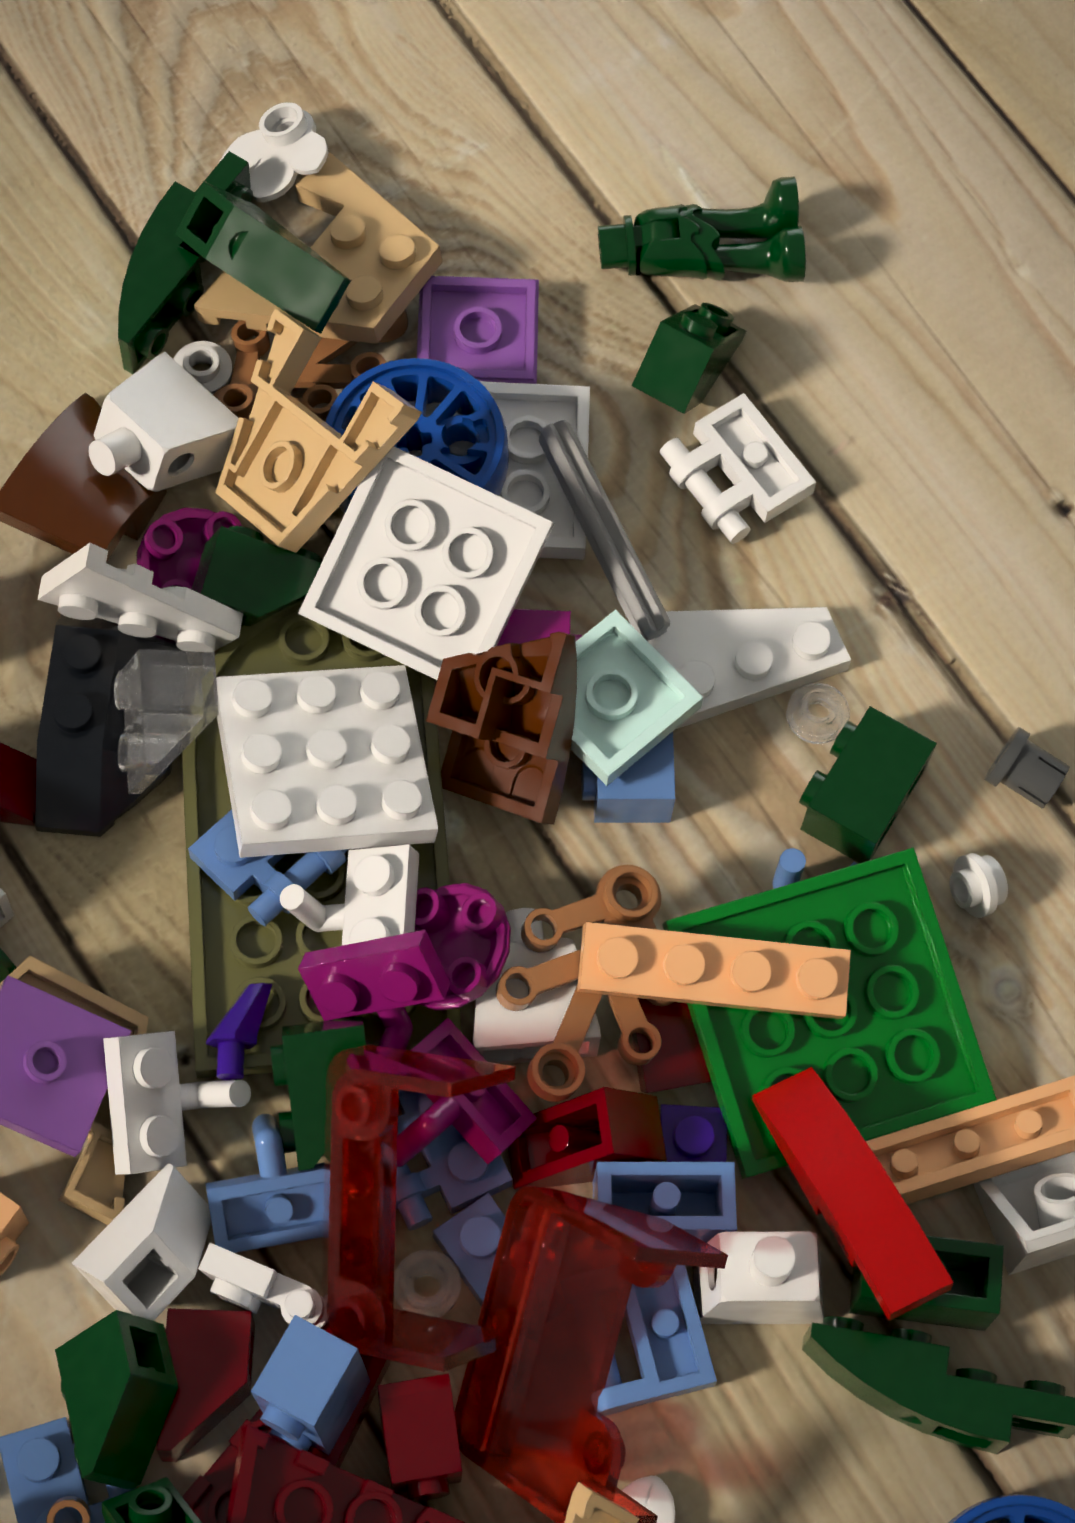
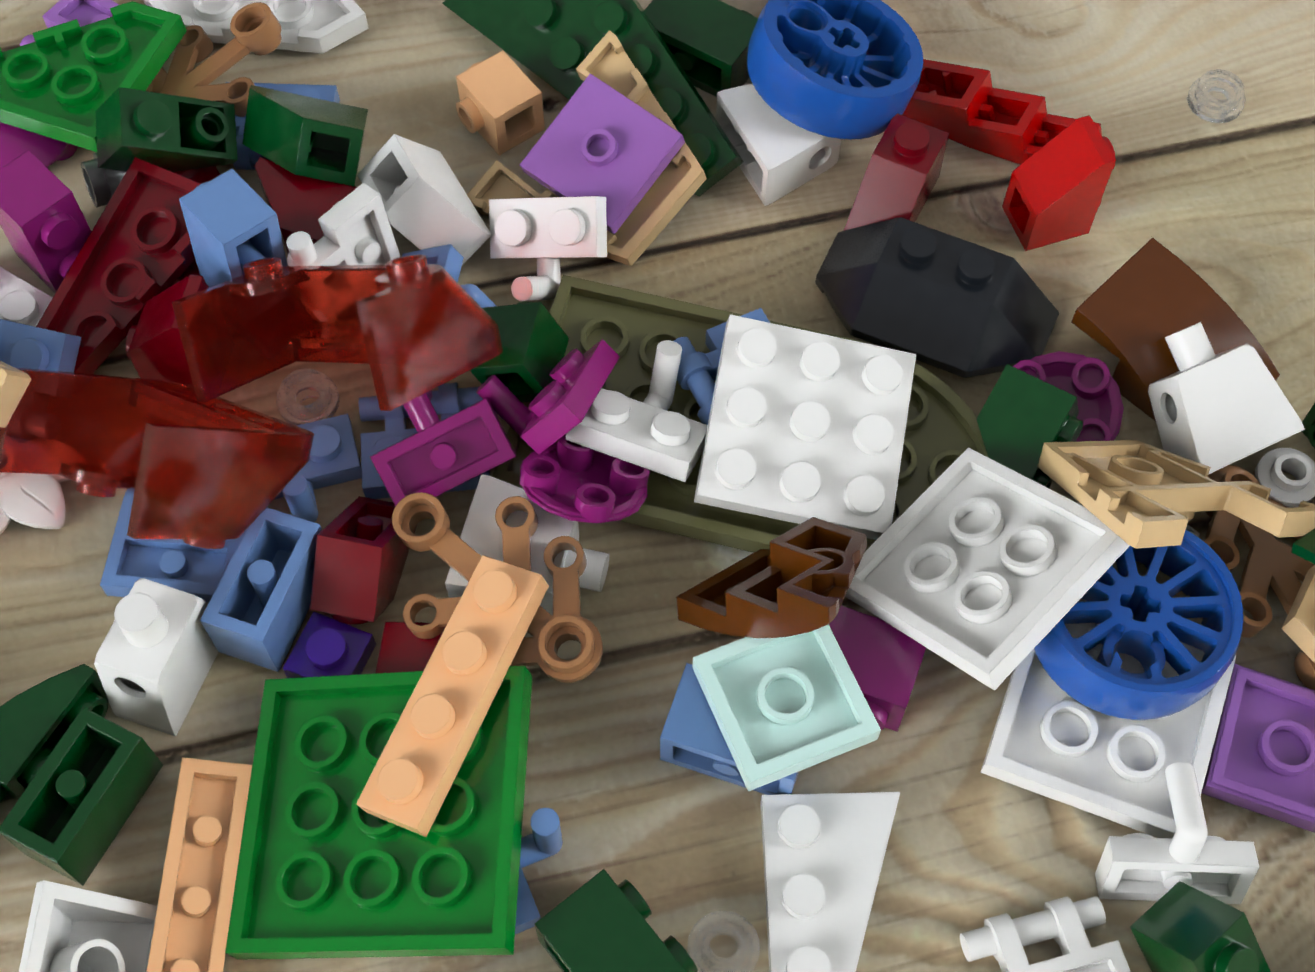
camera: 115 degrees right, 5 degrees down
(91, 588) = (1009, 306): white wing -> none
(165, 705) = (895, 309): clear slope -> none
(239, 1030) = (579, 305): dark purple bar -> none
(603, 530) = (998, 780): light grey axle -> none
(606, 373) = (1149, 867): none -> white plate
(852, 1193) = (175, 729): red slope -> none

